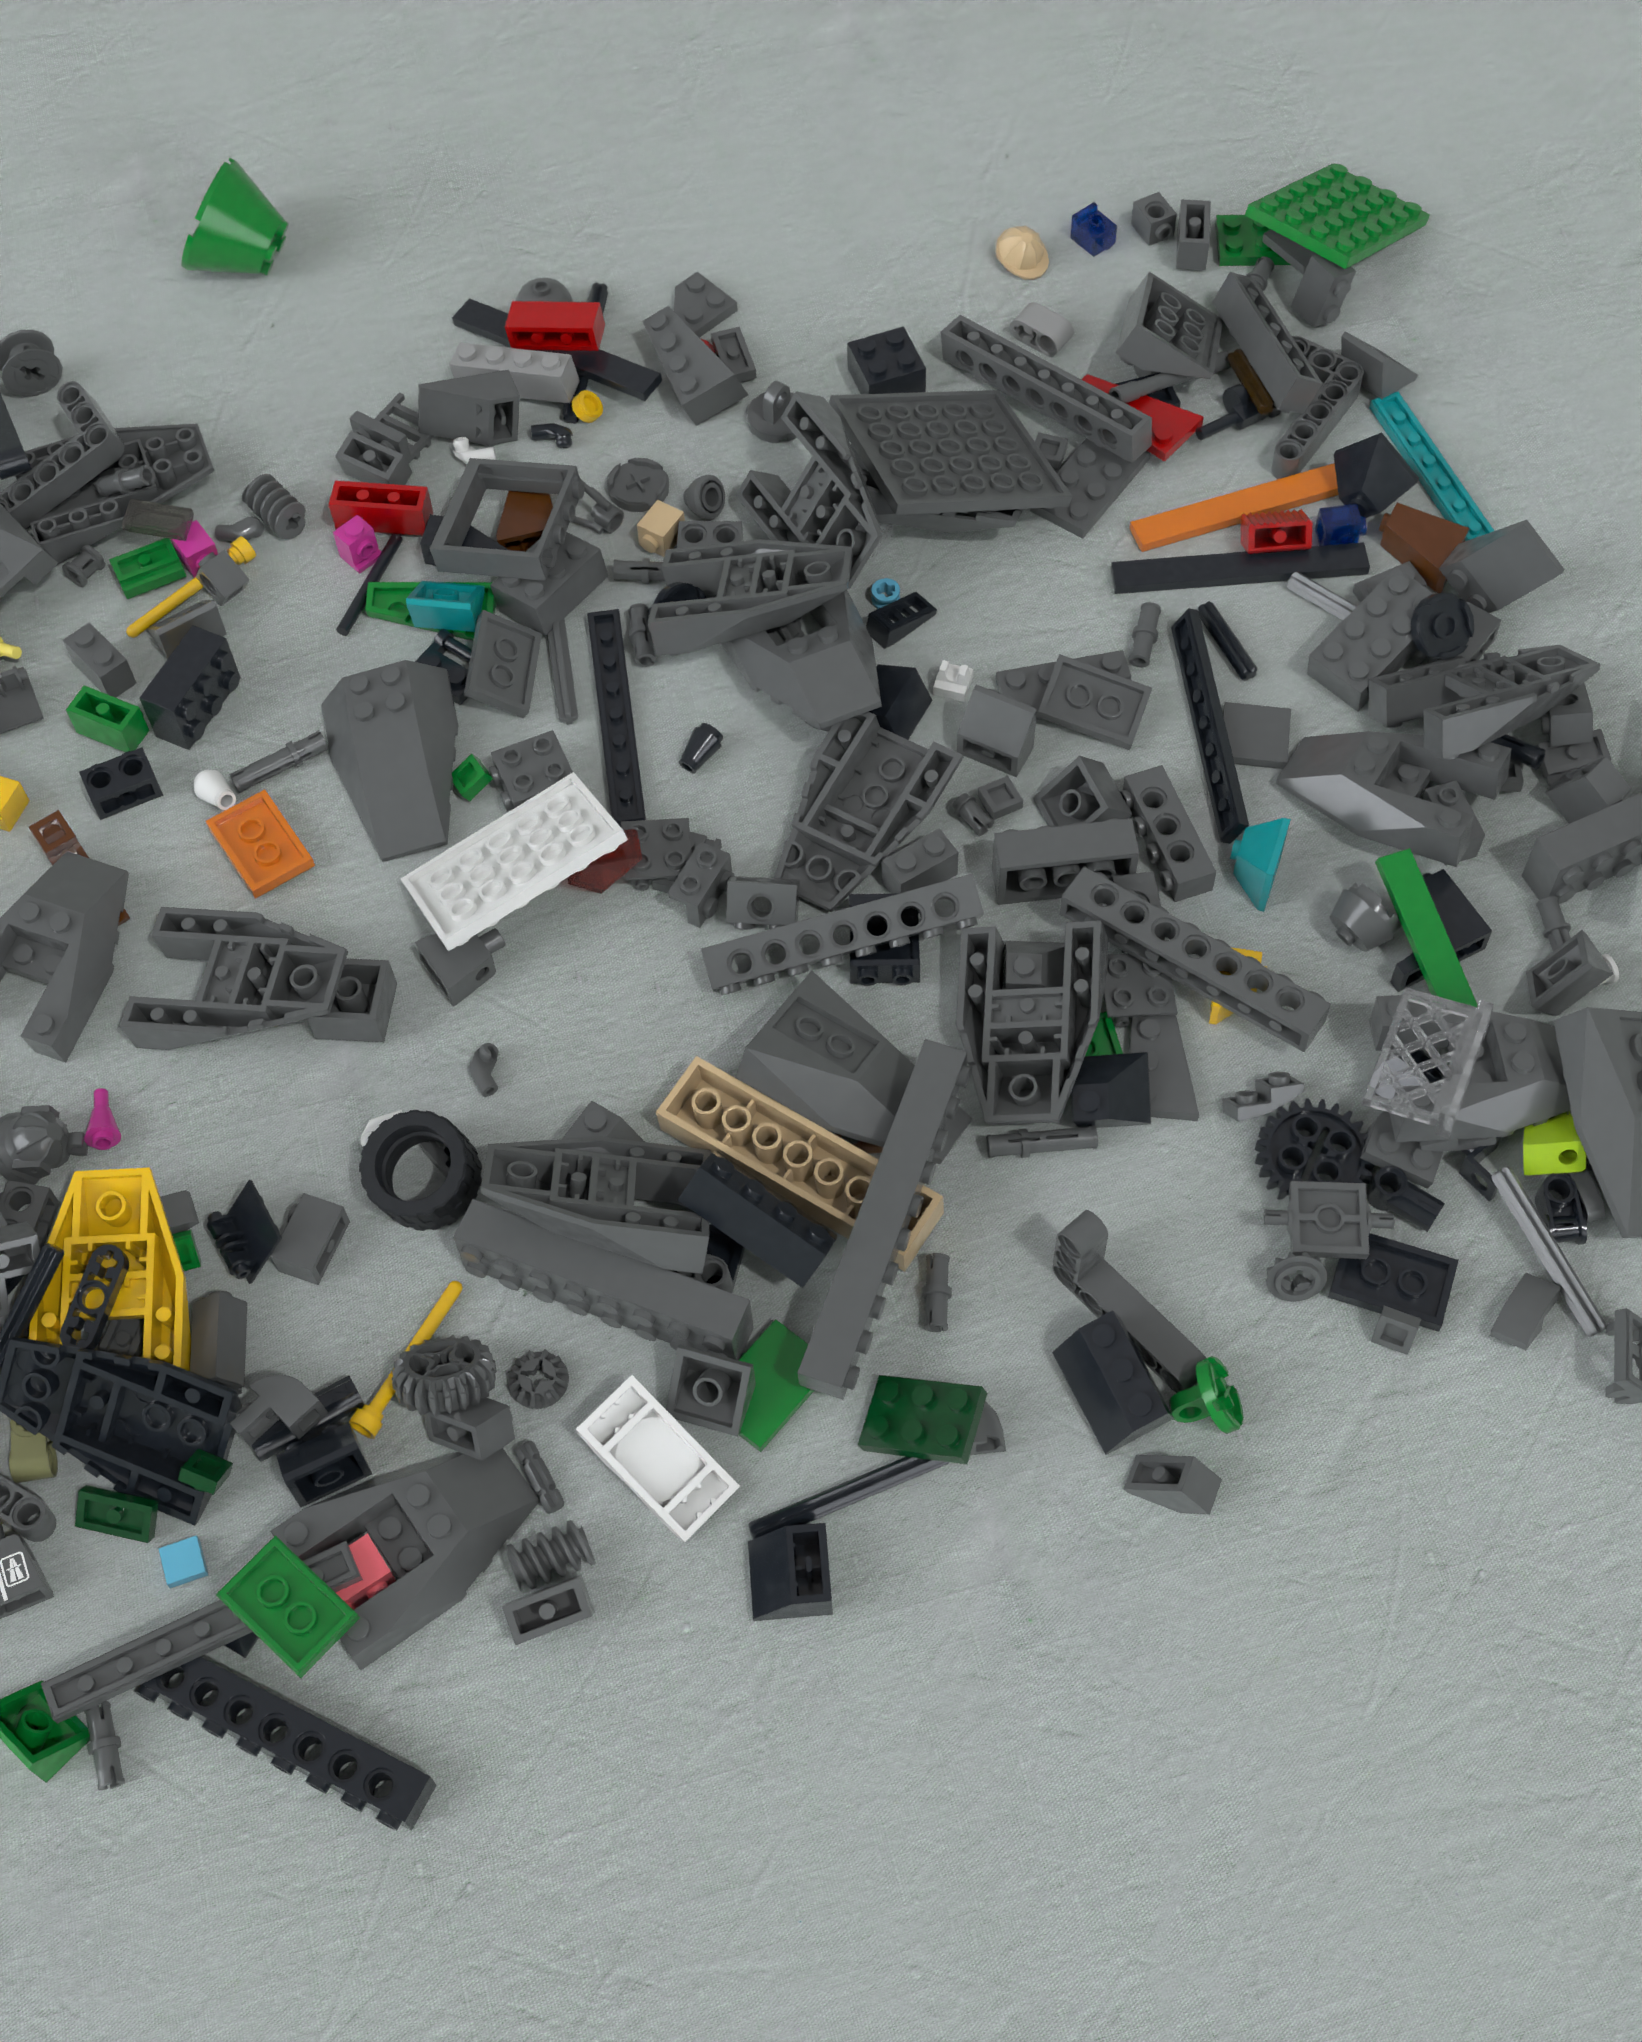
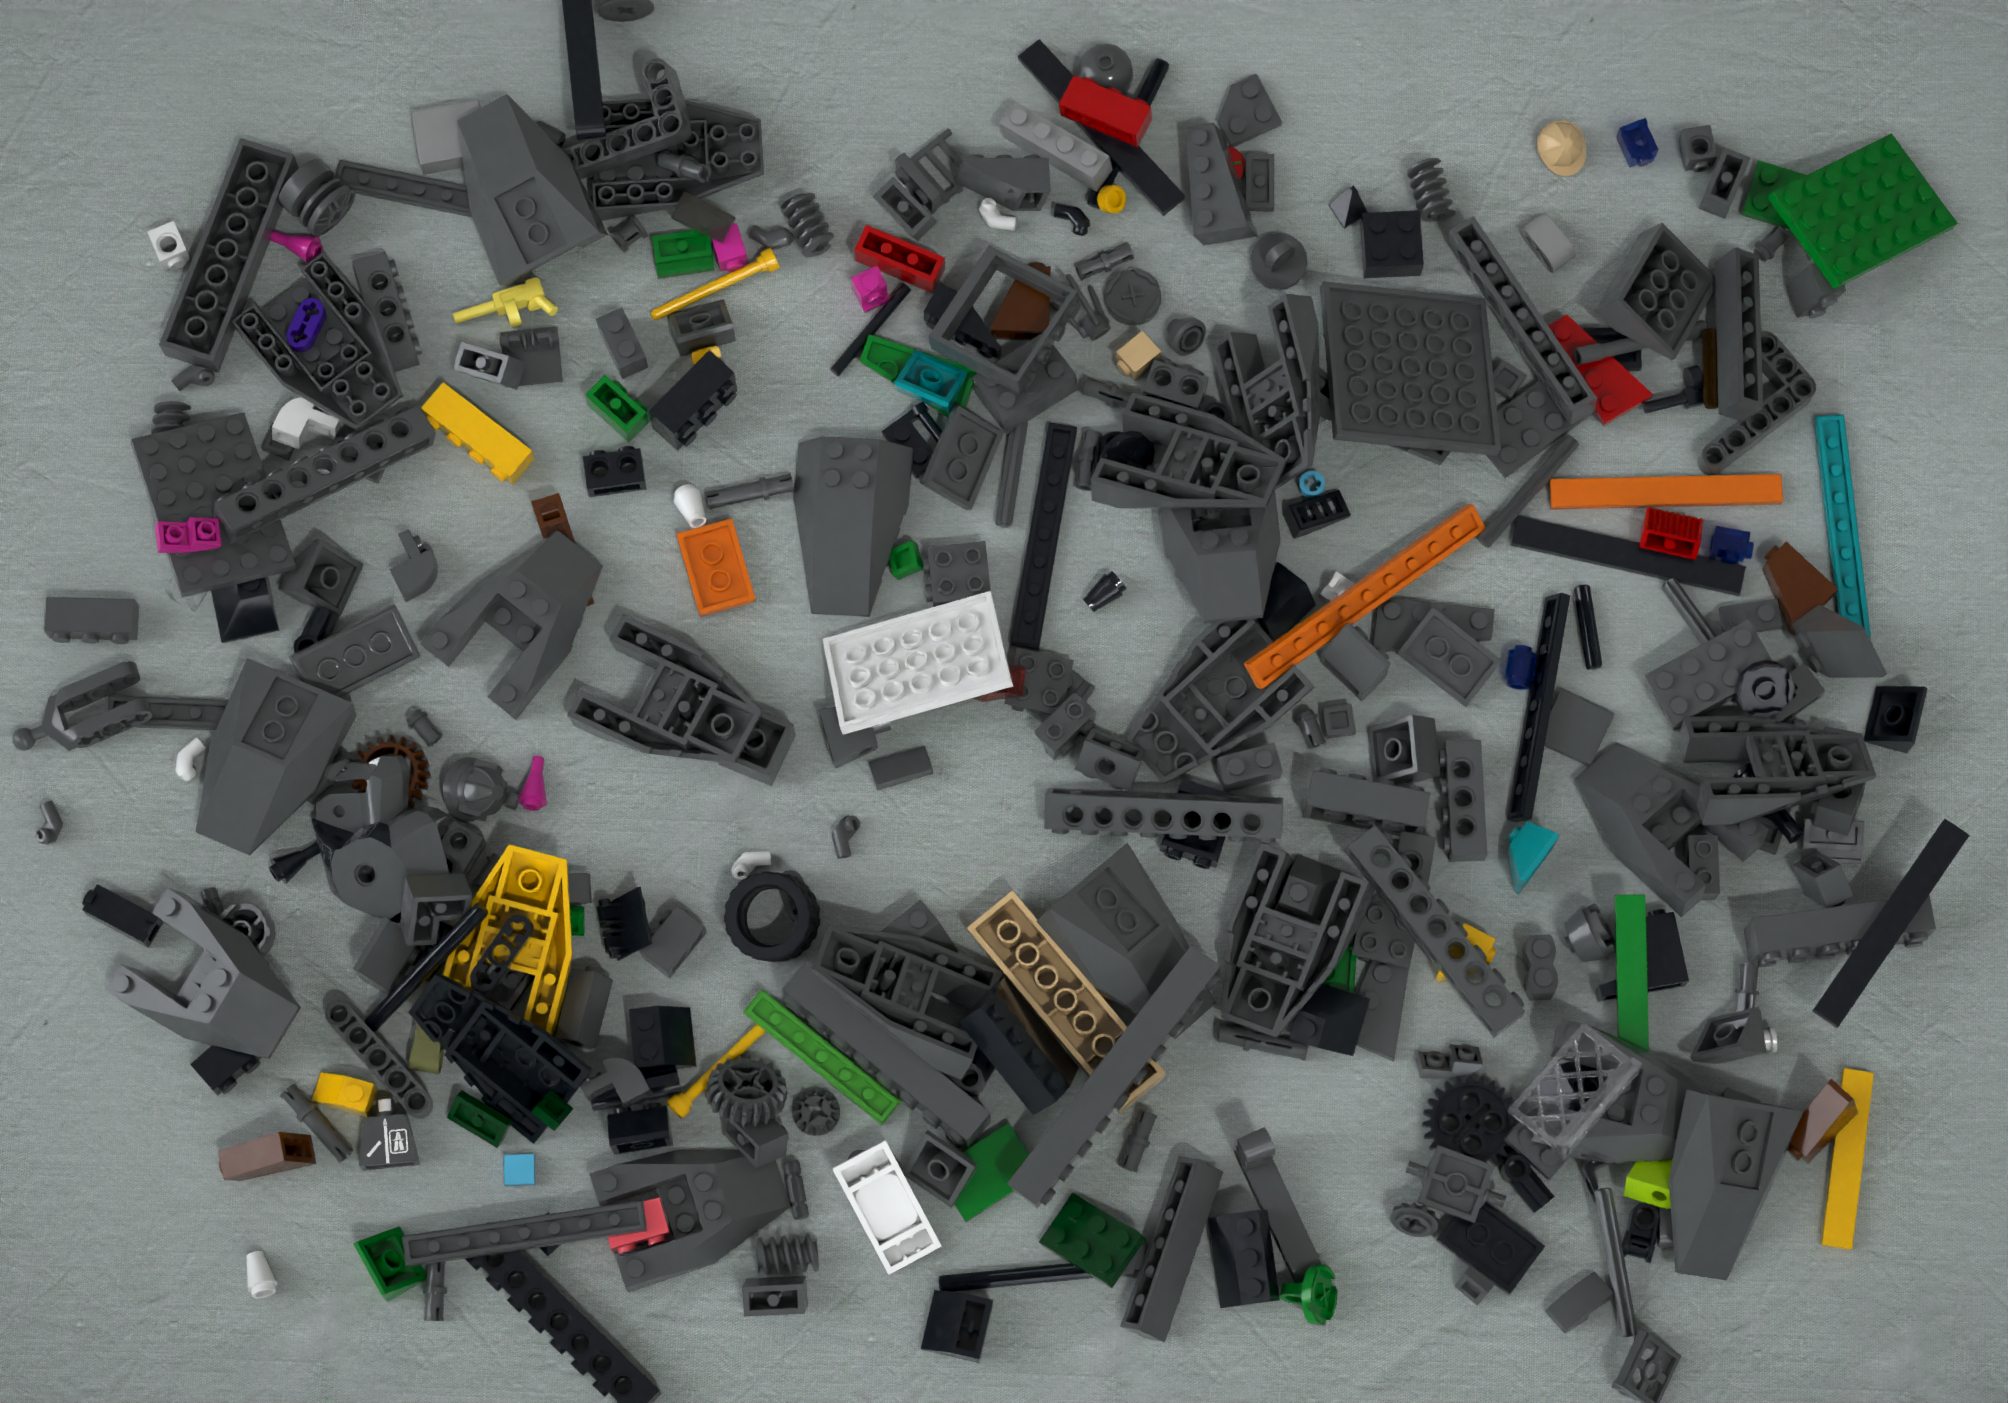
camera: 15 degrees right, 15 degrees up
(221, 577) = (744, 289): dark grey brick -> none
(288, 1606) = (589, 1237): green tile -> none
(324, 1347) = (662, 1038): none -> black slope
(527, 1314) = (821, 1057): none -> bright green tile
(529, 983) = (901, 767): none -> dark grey slope
(600, 459) = (1104, 261): none -> dark grey pin
(830, 353) = (1348, 207): none -> black slope
(905, 310) = (1428, 190): none -> dark grey piece
(980, 668) = (1364, 596): none -> orange plate
(1022, 1401) = (1171, 1249): none -> dark grey brick
(1112, 540) = (1528, 491): none -> dark grey axle
(1145, 634) = (1519, 599): dark grey pin -> none
(1173, 694) = (1520, 667): none -> clear blue brick
(1174, 1483) = (1261, 1348): dark grey slope -> none
(1320, 968) = (1538, 960): none -> dark grey brick
(1372, 475) = (1771, 512): black slope -> none
(1381, 372) = (1835, 382): dark grey slope -> none
(1587, 624) = (1895, 717): none -> black slope

